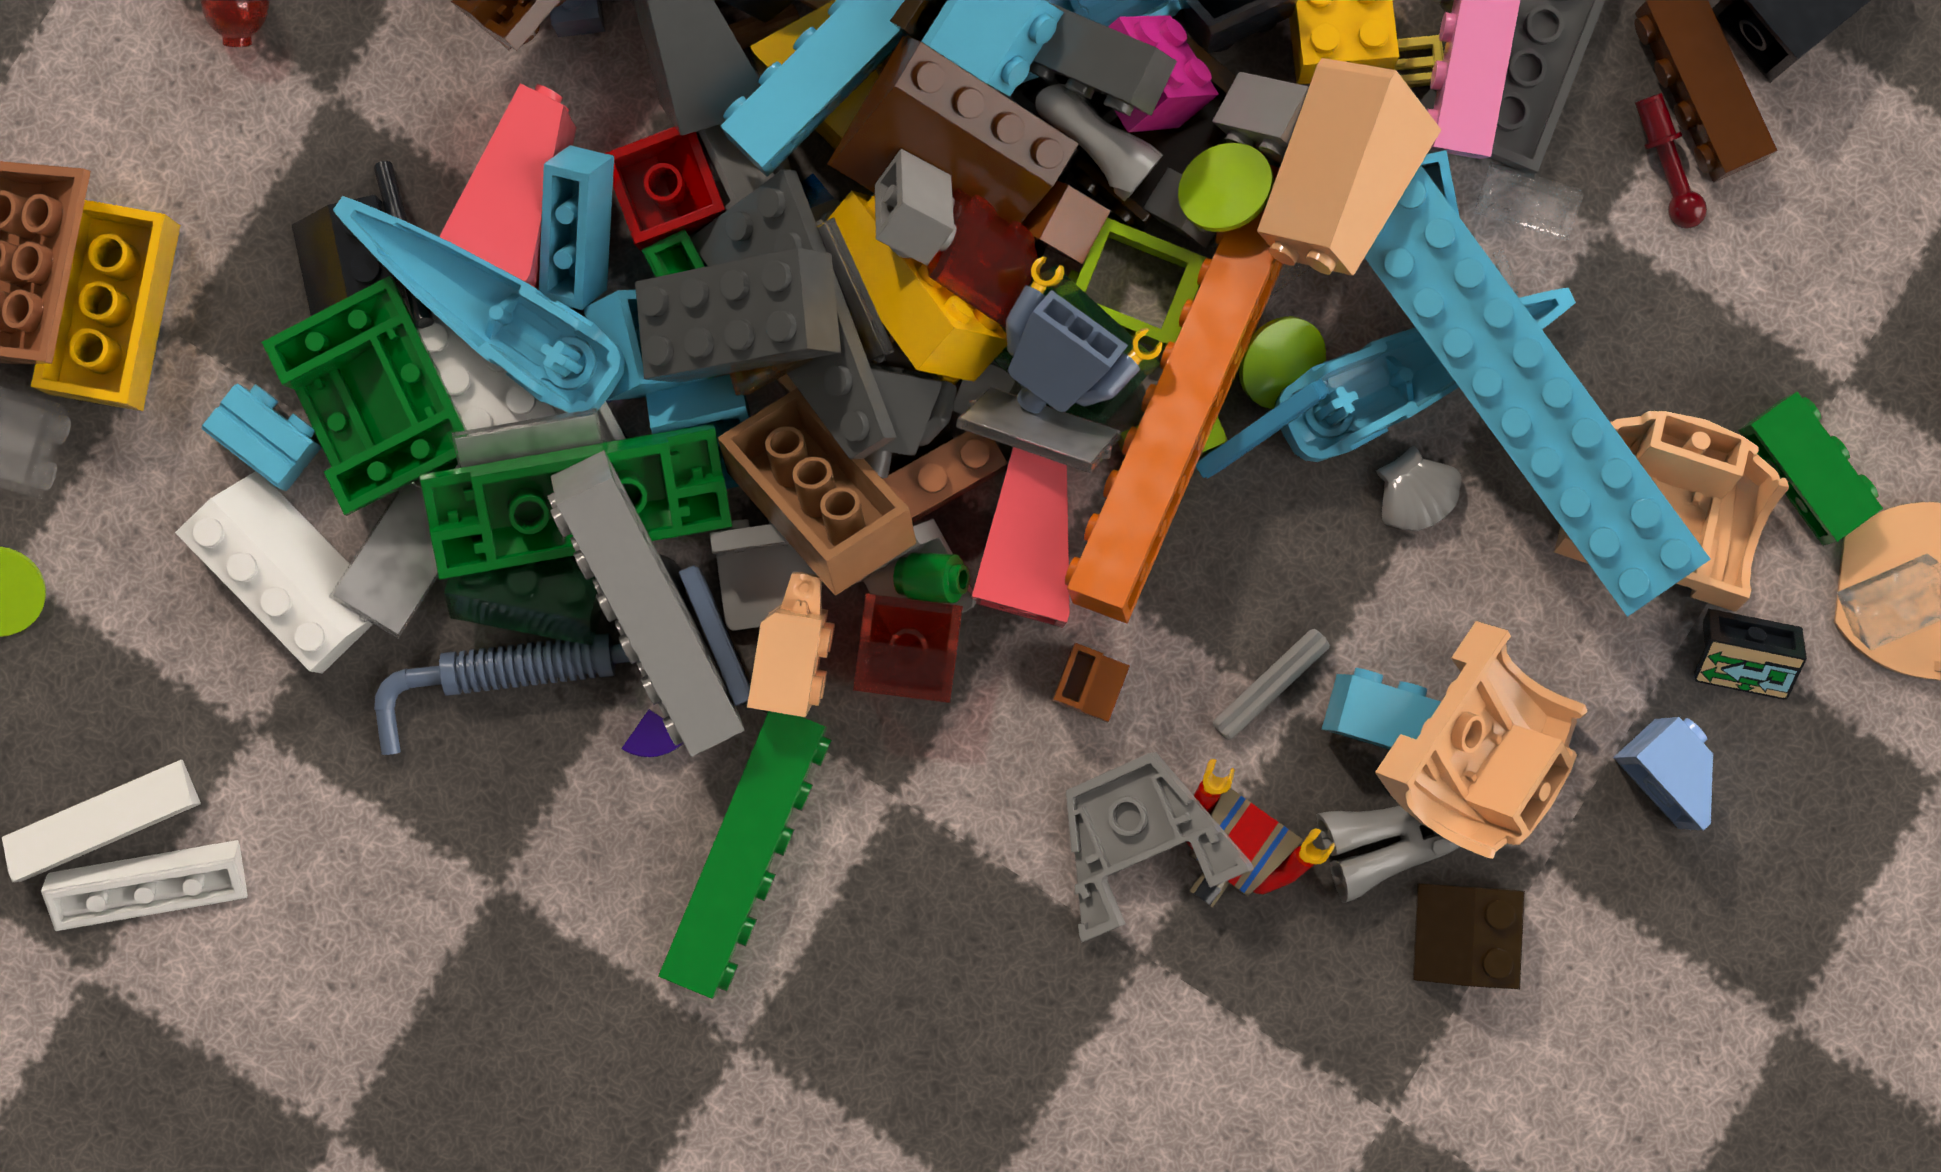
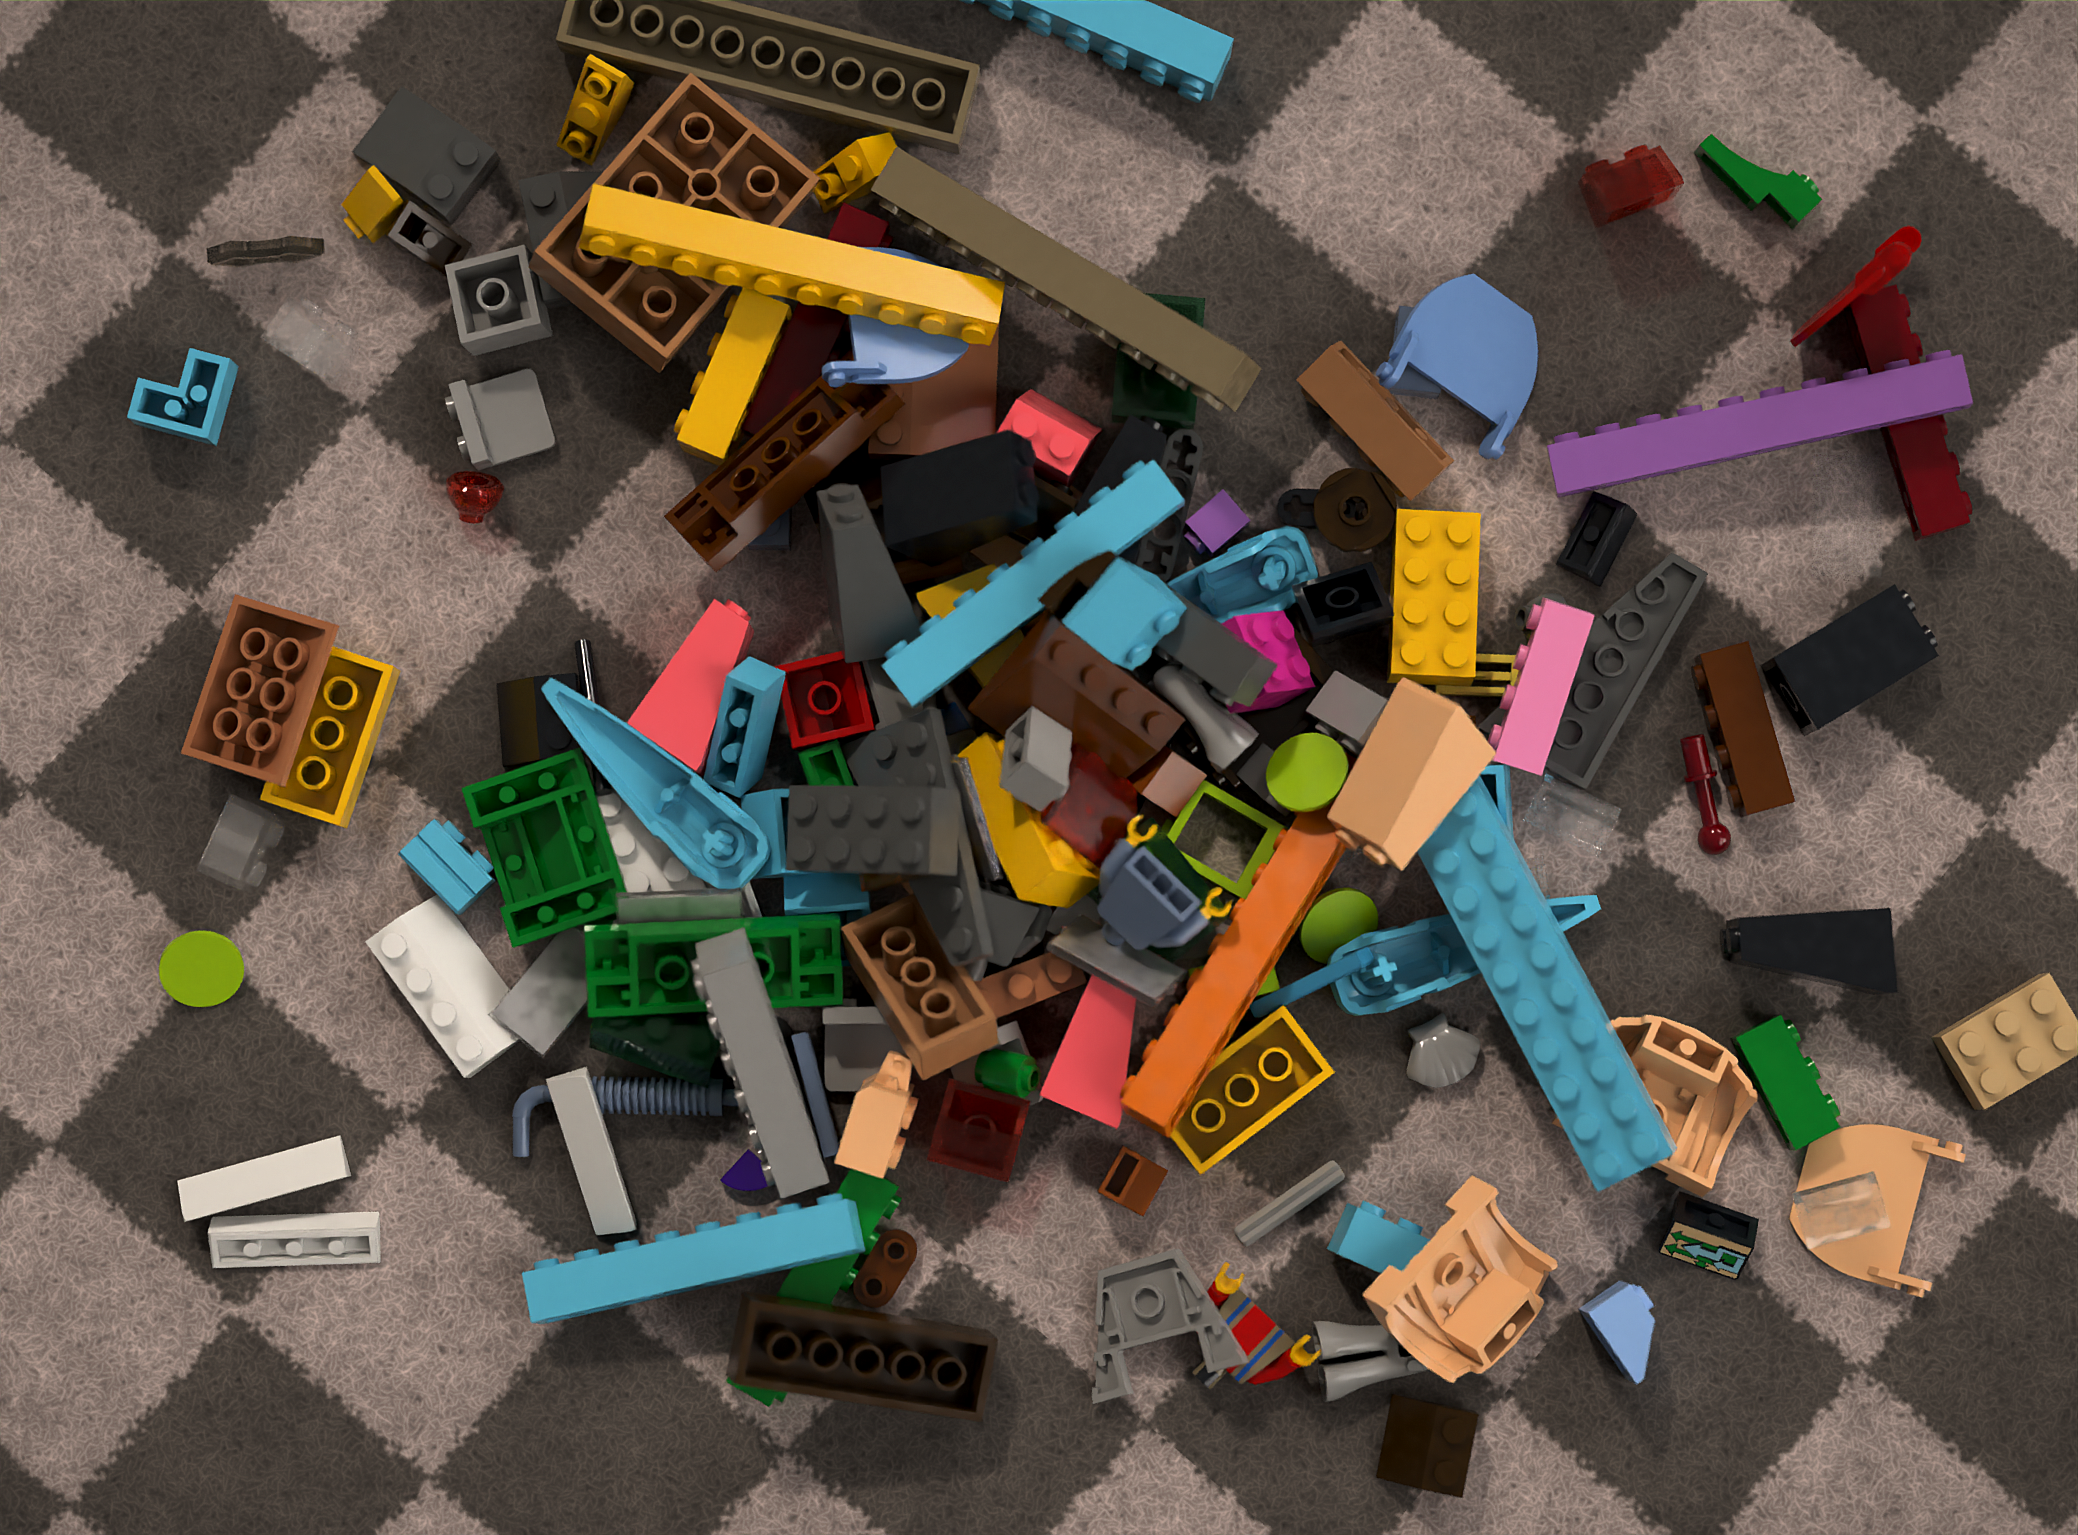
camera: 15 degrees right, 0 degrees up
(469, 736) = (591, 1152): none -> white slope
(601, 843) = (693, 1261): none -> medium azure brick
(809, 926) = (861, 1356): none -> dark brown brick
(823, 822) = (884, 1268): none -> reddish brown plate
(1209, 559) = (1249, 1088): none -> yellow brick
(1835, 309) = (1825, 947): none -> black slope

